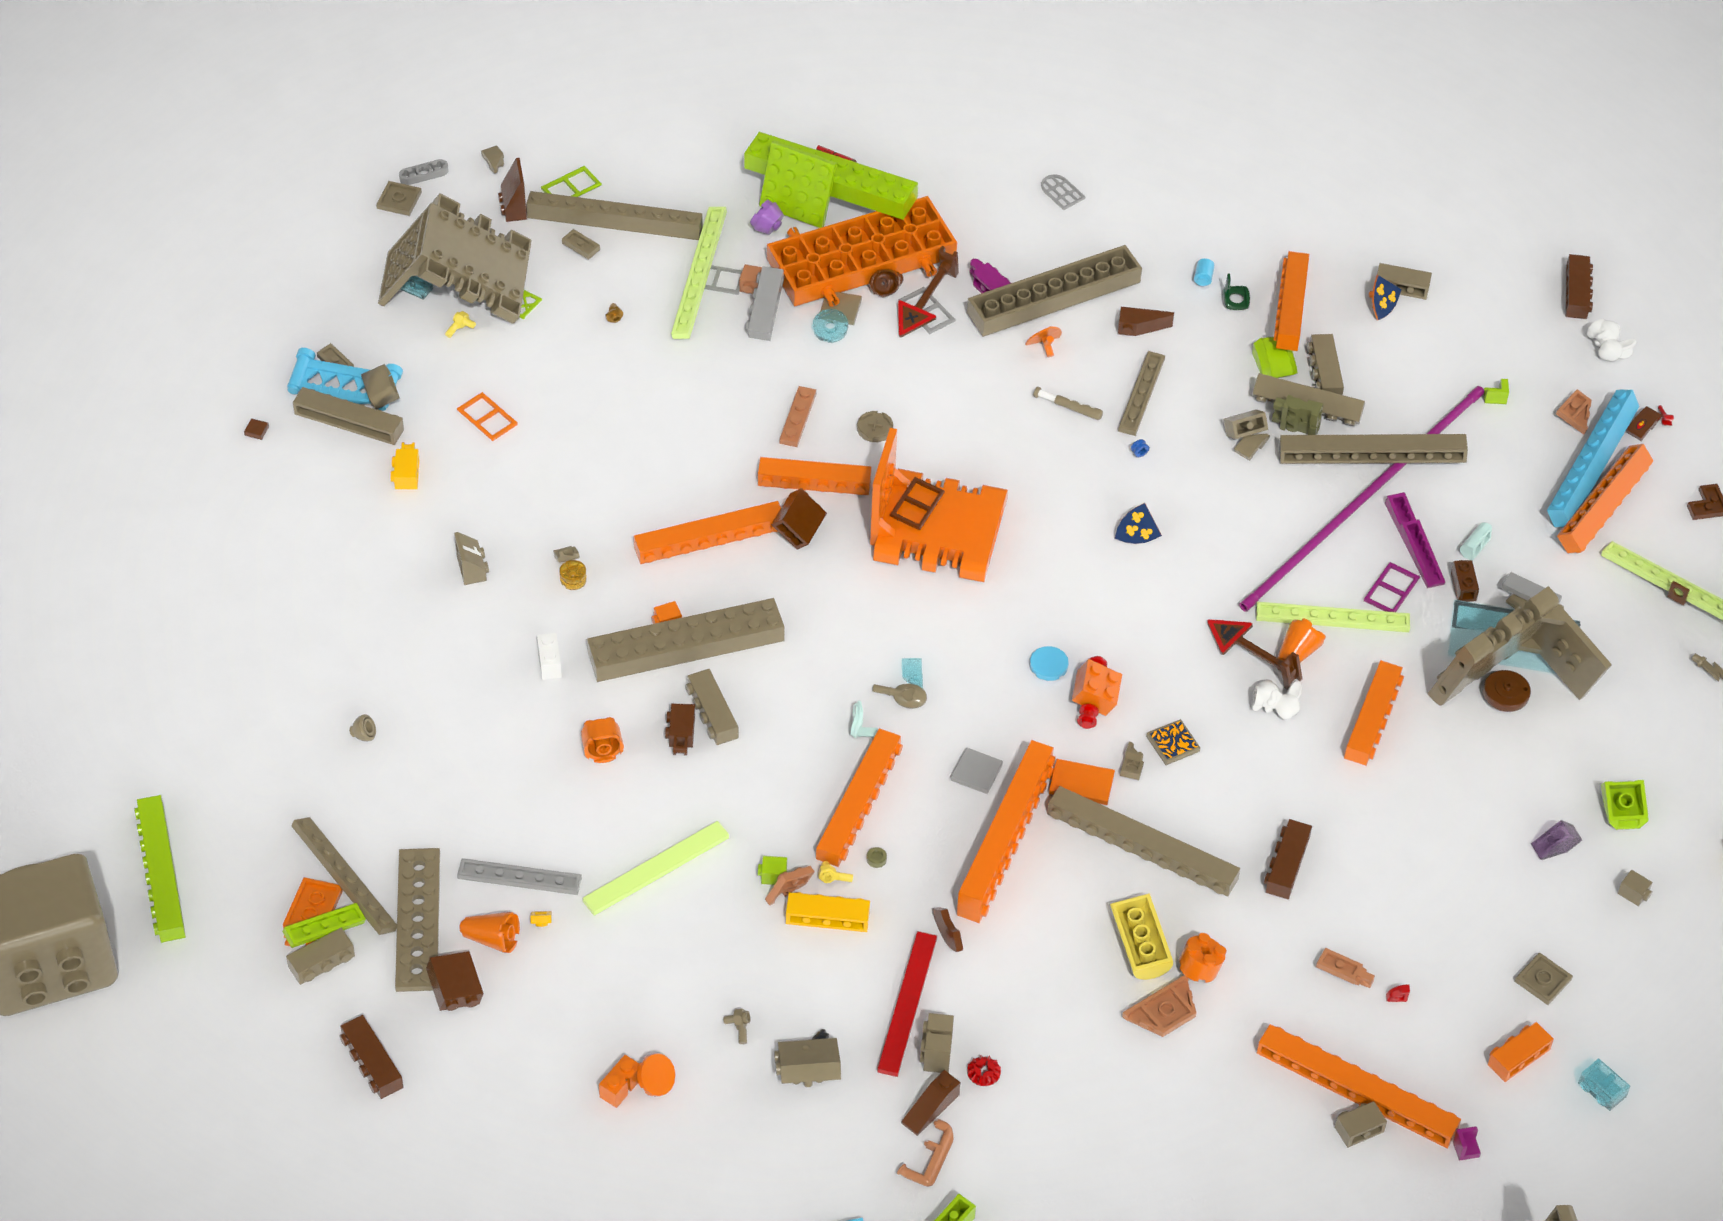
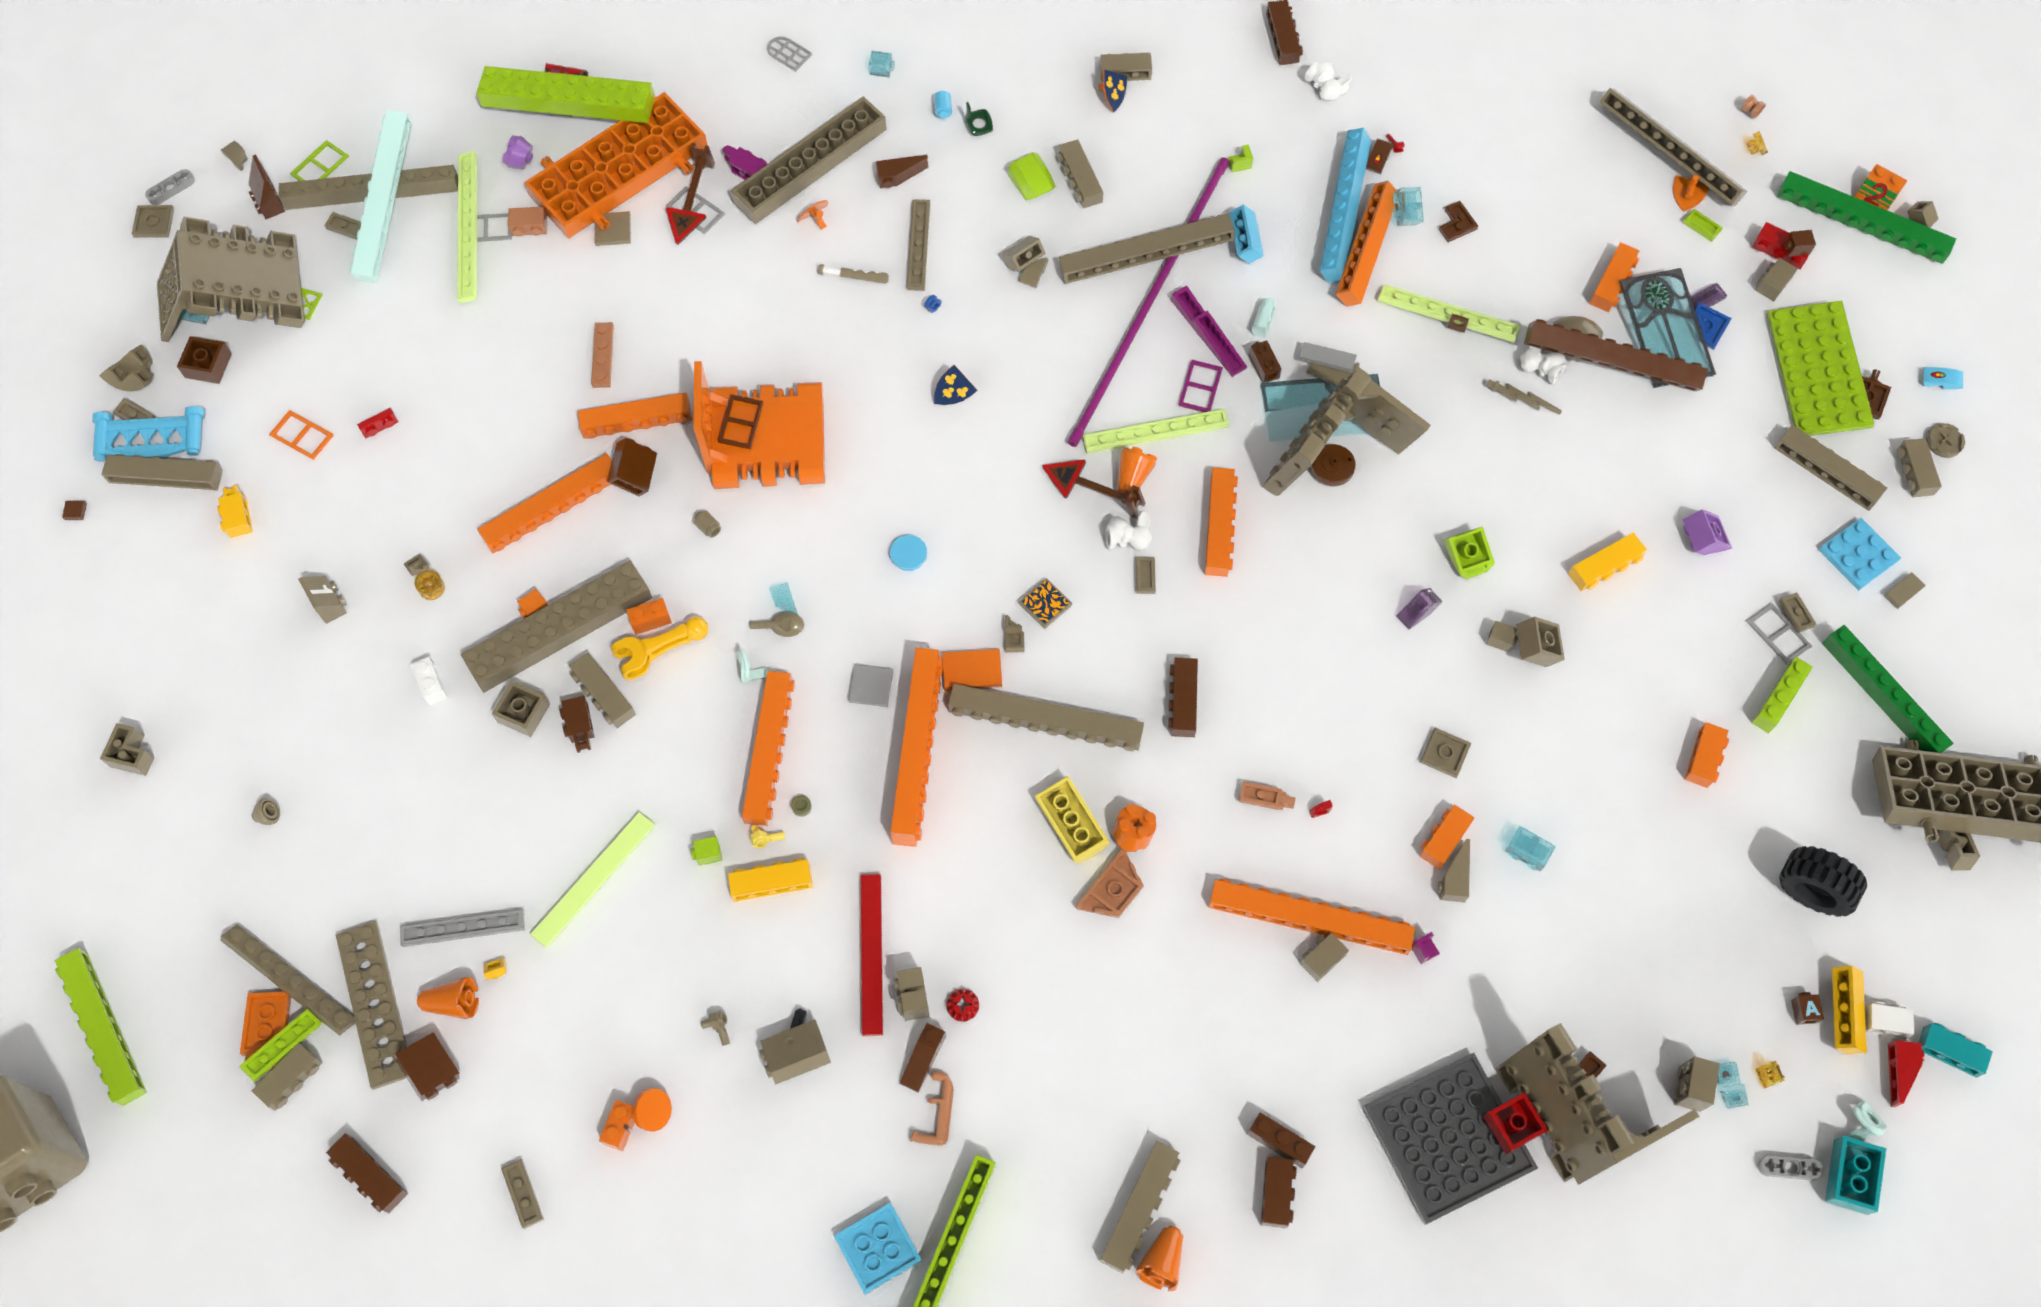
camera: 15 degrees left, 15 degrees up
(248, 643) = (124, 753): none -> dark tan brick
(343, 322) = (130, 372): none -> dark tan brick
(380, 386) = (184, 436): dark tan piece -> none
(415, 328) = (204, 360): none -> reddish brown brick
(460, 320) = (247, 338): light yellow piece -> none
(511, 1116) = (522, 1194): none -> dark tan tile
(563, 422) = (377, 423): none -> red plate
(602, 740) = (503, 759): orange brick -> none
(614, 314) = (397, 292): pearl gold plate -> none
(625, 224) = (380, 196): none -> light aqua brick
(630, 701) = (521, 709): none -> dark tan brick
(761, 683) = (647, 650): none -> yellow piece
(766, 303) = (539, 245): light grey brick -> none
(777, 653) = (649, 616): none -> orange brick
(789, 882) = (724, 862): nougat wing -> none
(798, 183) = (537, 111): lime plate -> none
(830, 316) = (605, 241): clear light blue tile -> none
(857, 587) = (707, 523): none -> dark tan brick
(874, 426) = (678, 346): dark tan tile -> none
(891, 279) = (654, 188): reddish brown piece -> none
(947, 929) = (889, 866): reddish brown tile -> none
(1095, 690) = (960, 571): orange brick -> none
(1152, 221) = (881, 64): none -> clear light blue brick
(1282, 742) = (1145, 575): none -> dark tan tile
(1291, 301) = (1032, 116): orange brick -> none
(1298, 415) = (1069, 232): olive hips -> none
(1334, 405) = (1074, 211): dark tan brick -> none
(1480, 460) = (1246, 234): none -> medium azure brick
(1518, 1089) = (1455, 882): none -> dark tan slope
(1576, 411) = (1316, 160): nougat wing -> none
(1658, 474) = (1408, 206): none -> clear light blue brick
(1672, 899) = (1540, 642): none -> dark tan brick

